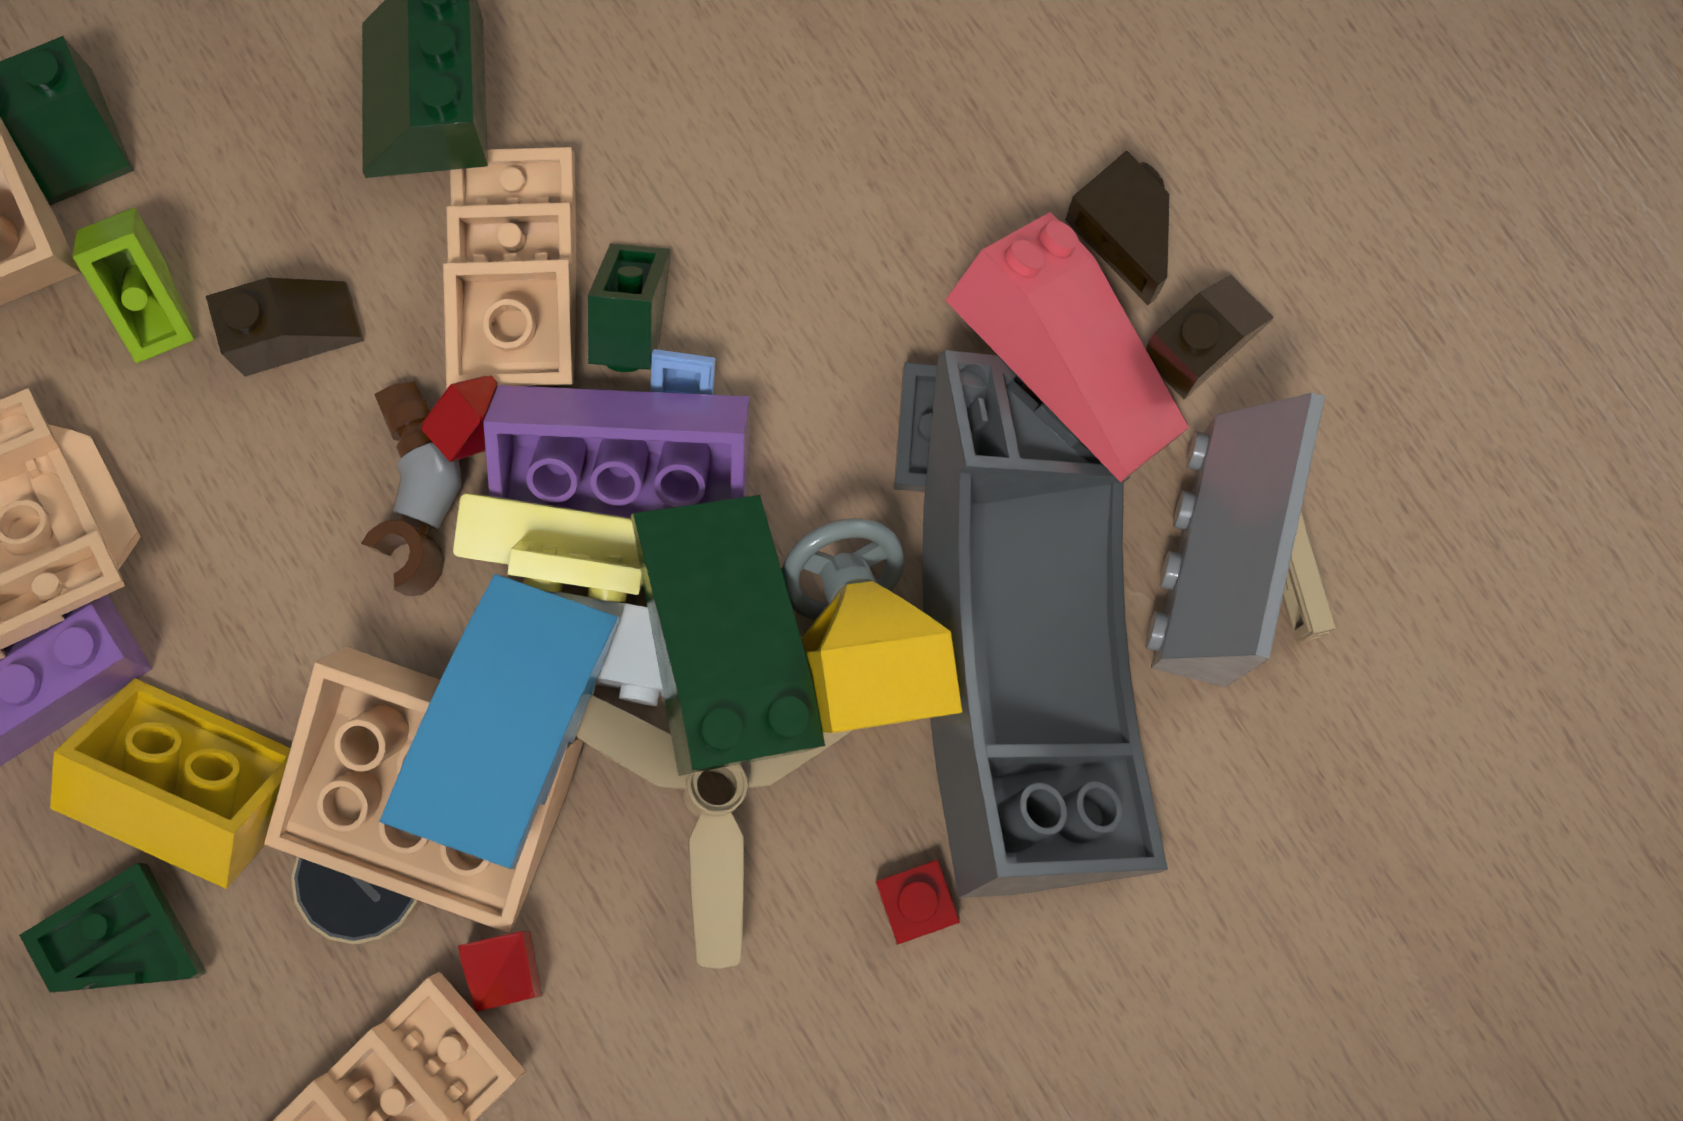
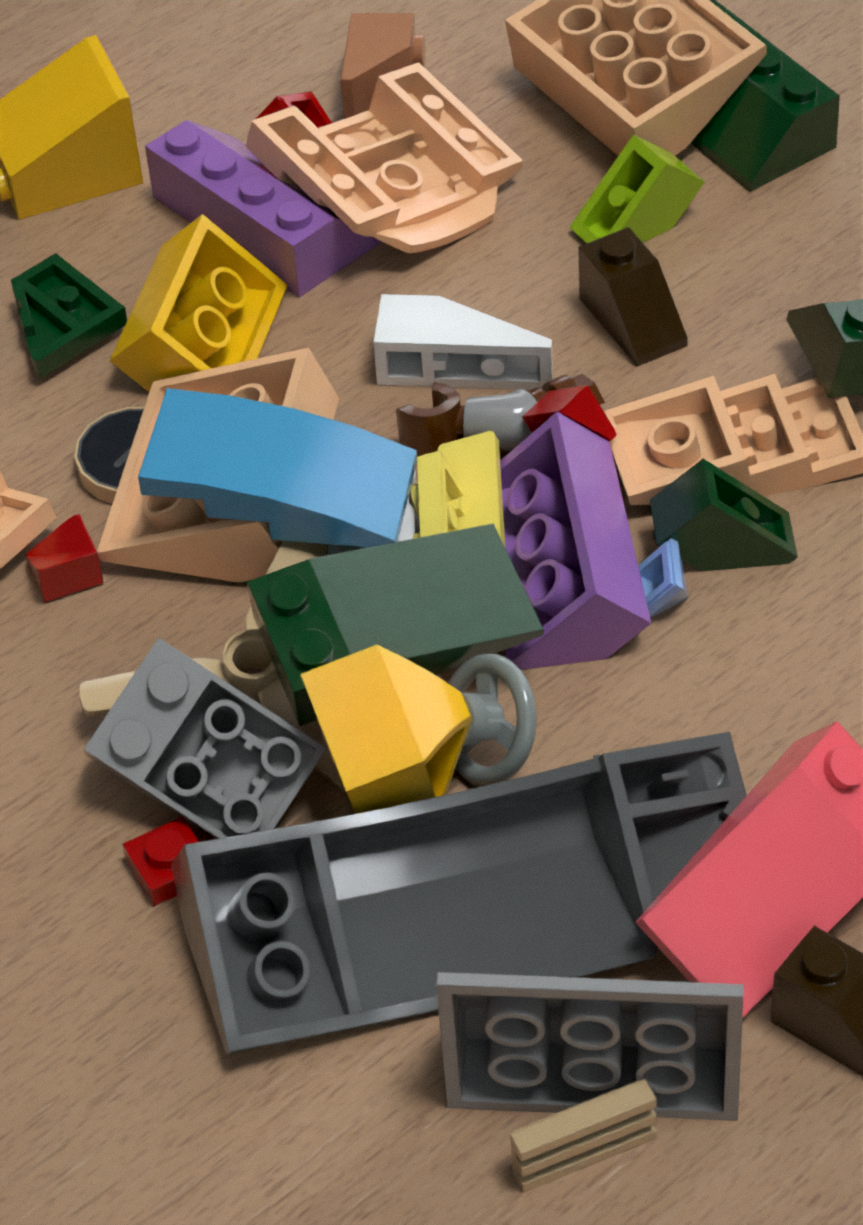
camera: 85 degrees right, 30 degrees down
(297, 521) = (454, 345): none -> white slope
(814, 855) = (203, 746): none -> light grey slope

